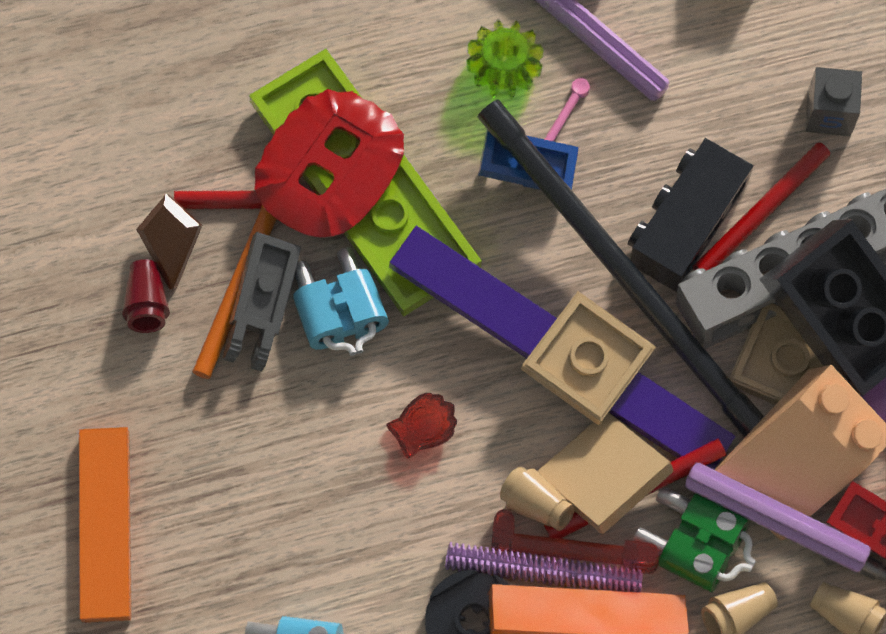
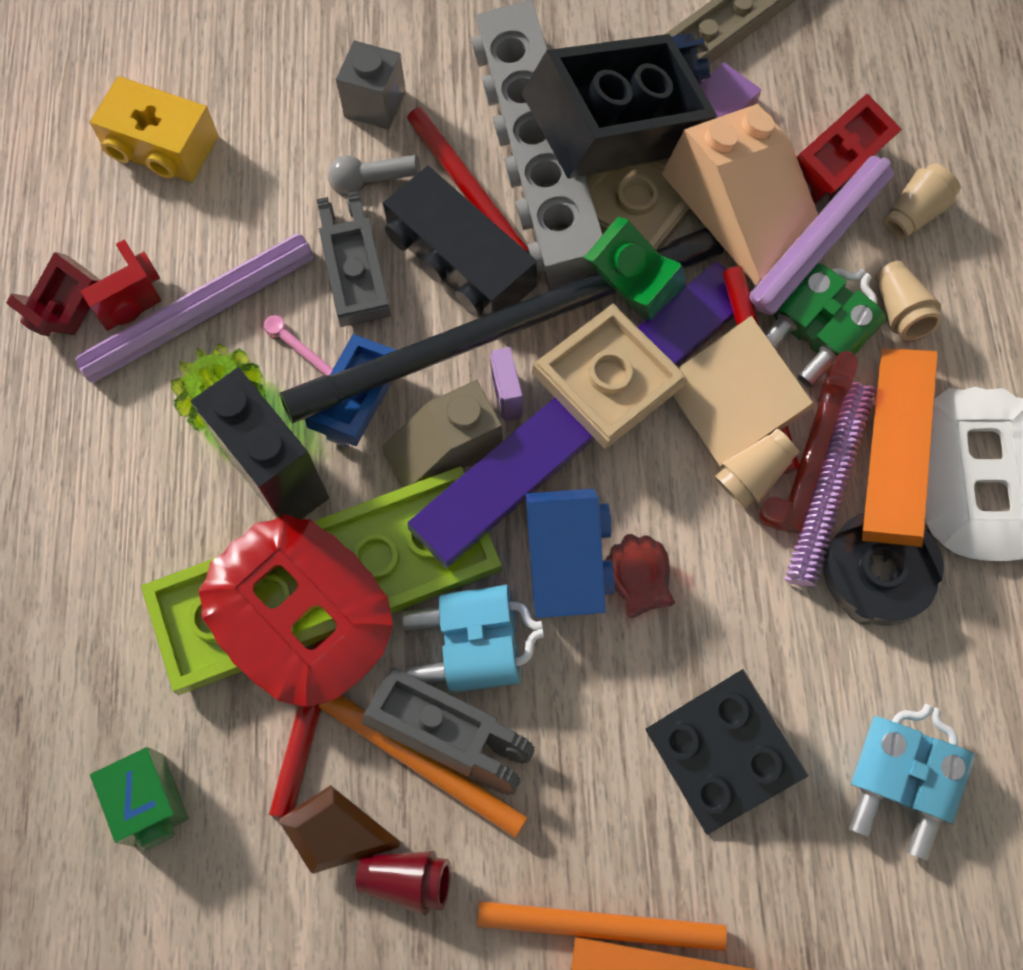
camera: 75 degrees left, 0 degrees up
(140, 448) = (602, 925): none -> orange bar
(166, 97) = (140, 799): none -> green brick
(290, 515) = (726, 752): none -> black hinge
(421, 354) = (567, 552): none -> blue brick
(447, 99) = (261, 446): none -> black brick
(507, 245) = (444, 435): none -> dark tan slope
(566, 281) = (506, 384): none -> lavender tile
(654, 131) = (352, 264): none -> dark grey hinge
(692, 359) = (635, 269): none -> green slope
(745, 110) = (350, 174): none -> light grey bar

